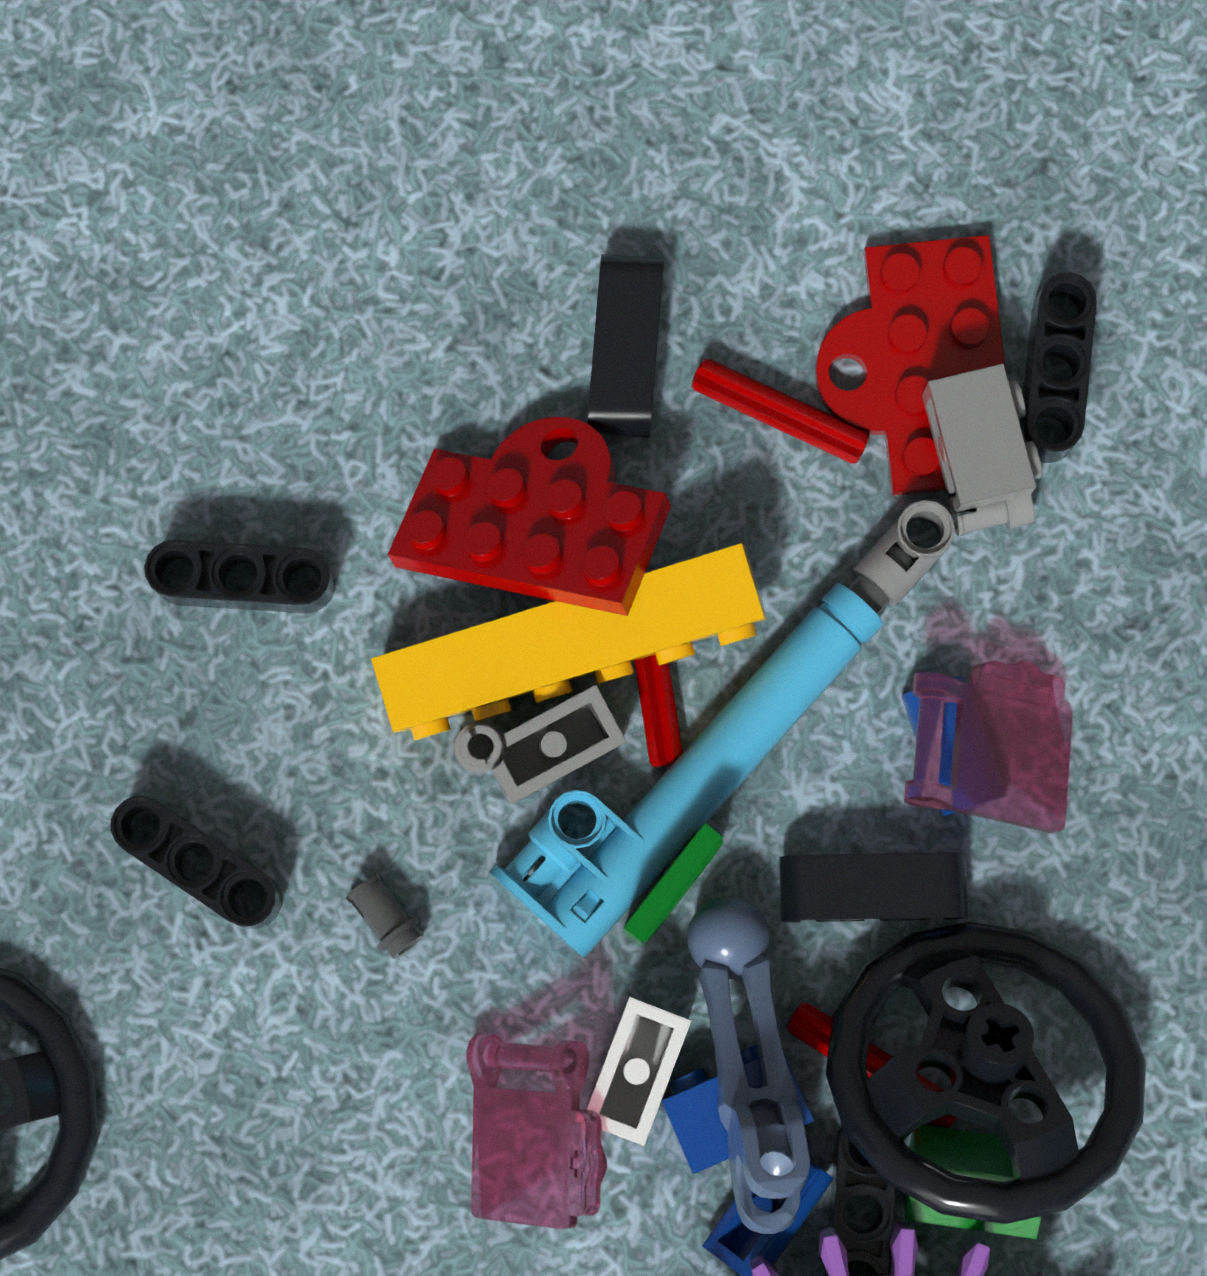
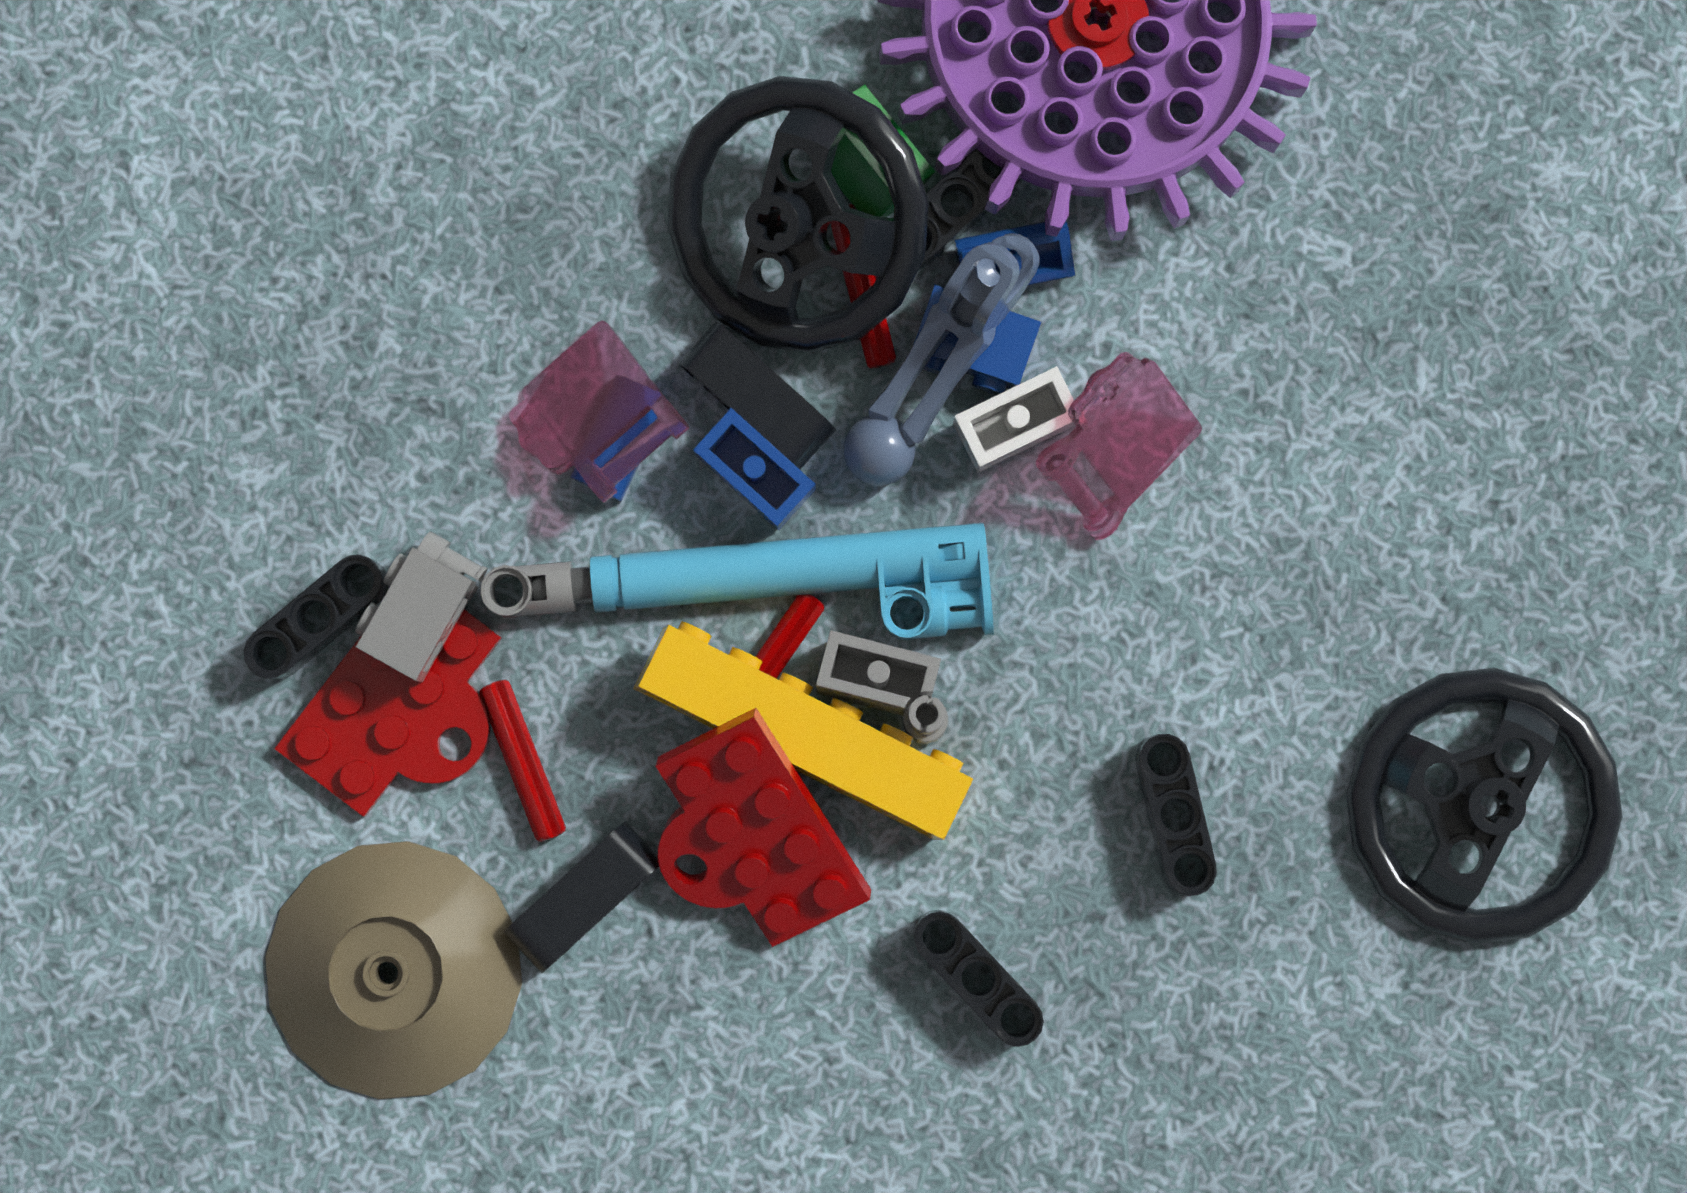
camera: 135 degrees left, 5 degrees up
(385, 916) = (1085, 668): dark grey pin -> none
(673, 885) = (886, 512): green tile -> none
(717, 211) = (451, 959): none -> dark tan dish
(816, 820) = (754, 469): none -> blue brick

